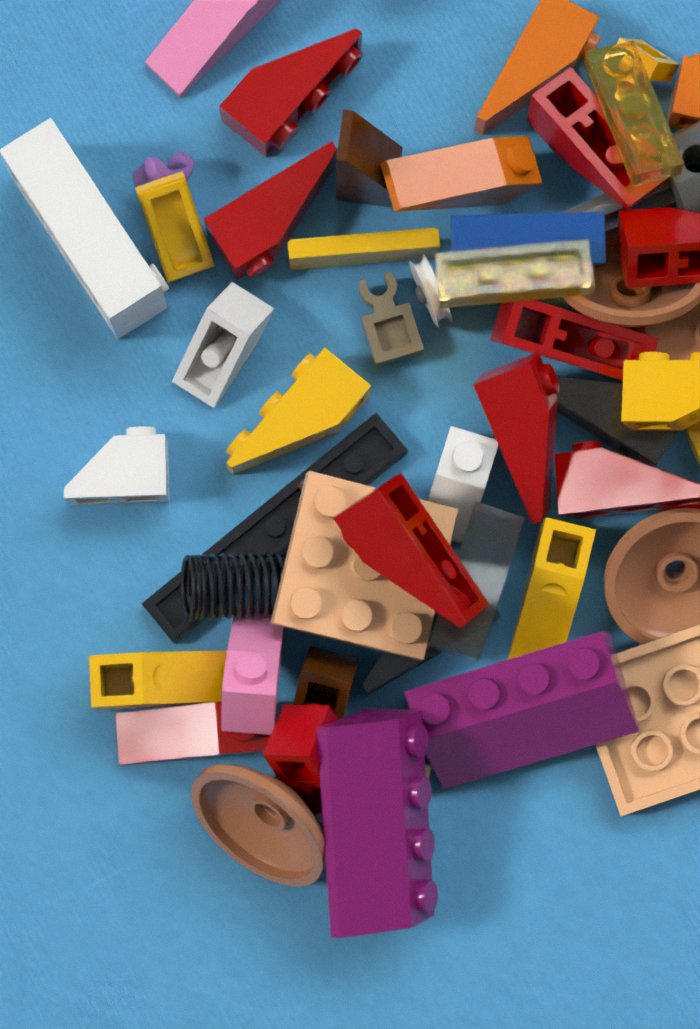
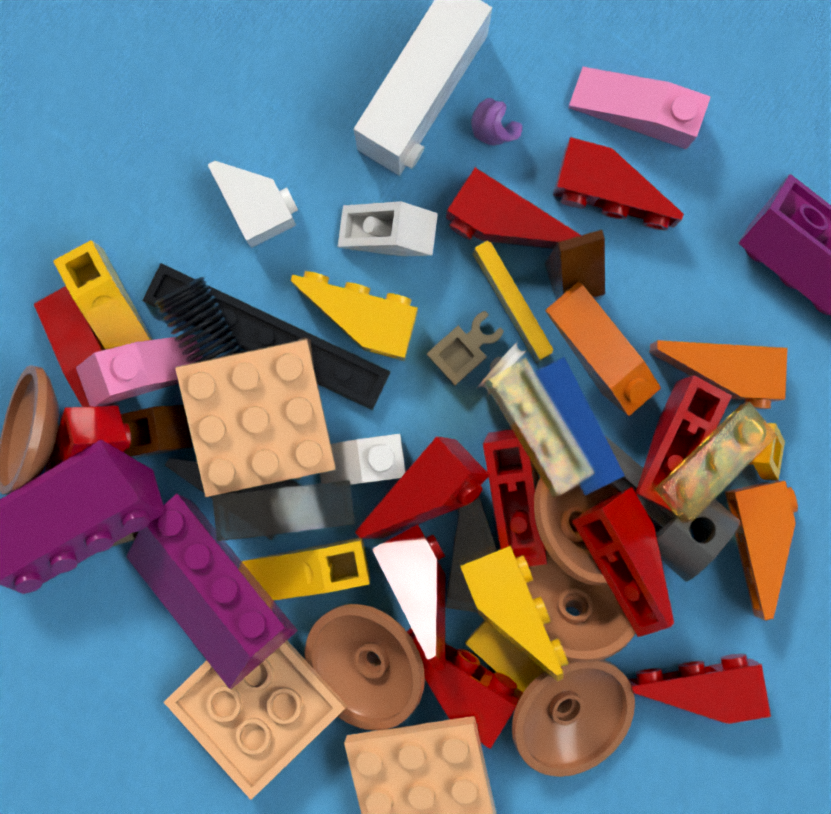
camera: 65 degrees right, 5 degrees up
(174, 226) = (460, 148): yellow tile -> none
(406, 546) = (272, 448): red slope -> none

